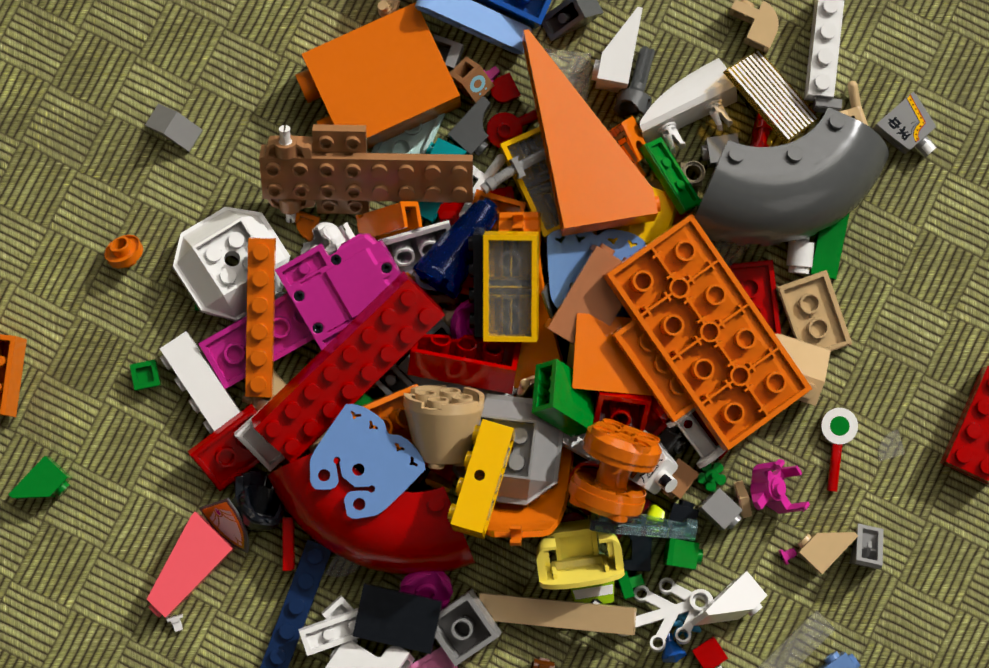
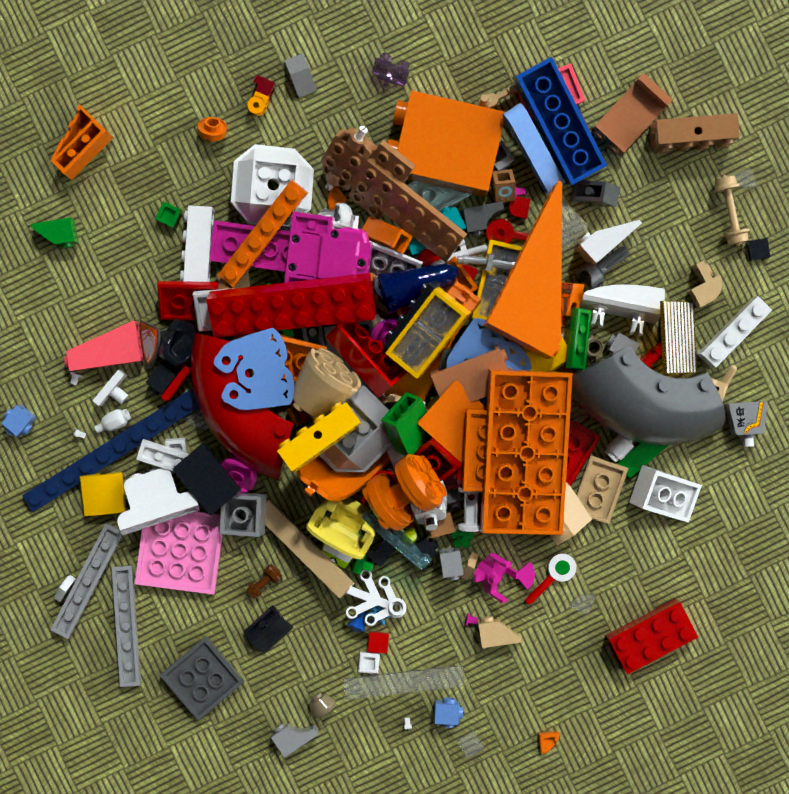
camera: 40 degrees right, 5 degrees up
(152, 187) = (259, 102): none -> leg
(226, 603) = (112, 389): none -> white tile
(251, 636) = (113, 420): none -> white plant
(264, 53) = (389, 72): none -> clear purple hips
(269, 552) = (161, 379): none -> black brick
(682, 553) = (407, 572): green slope -> none
(734, 602) = (415, 623): white slope -> none
(809, 462) = (526, 575): none -> dark pink tile
(821, 104) = (706, 366): light grey tile -> none
(868, 547) = (522, 653): light grey slope -> none
(885, 267) = (665, 494): none -> white slope
(968, 620) = (548, 740): none -> orange tile

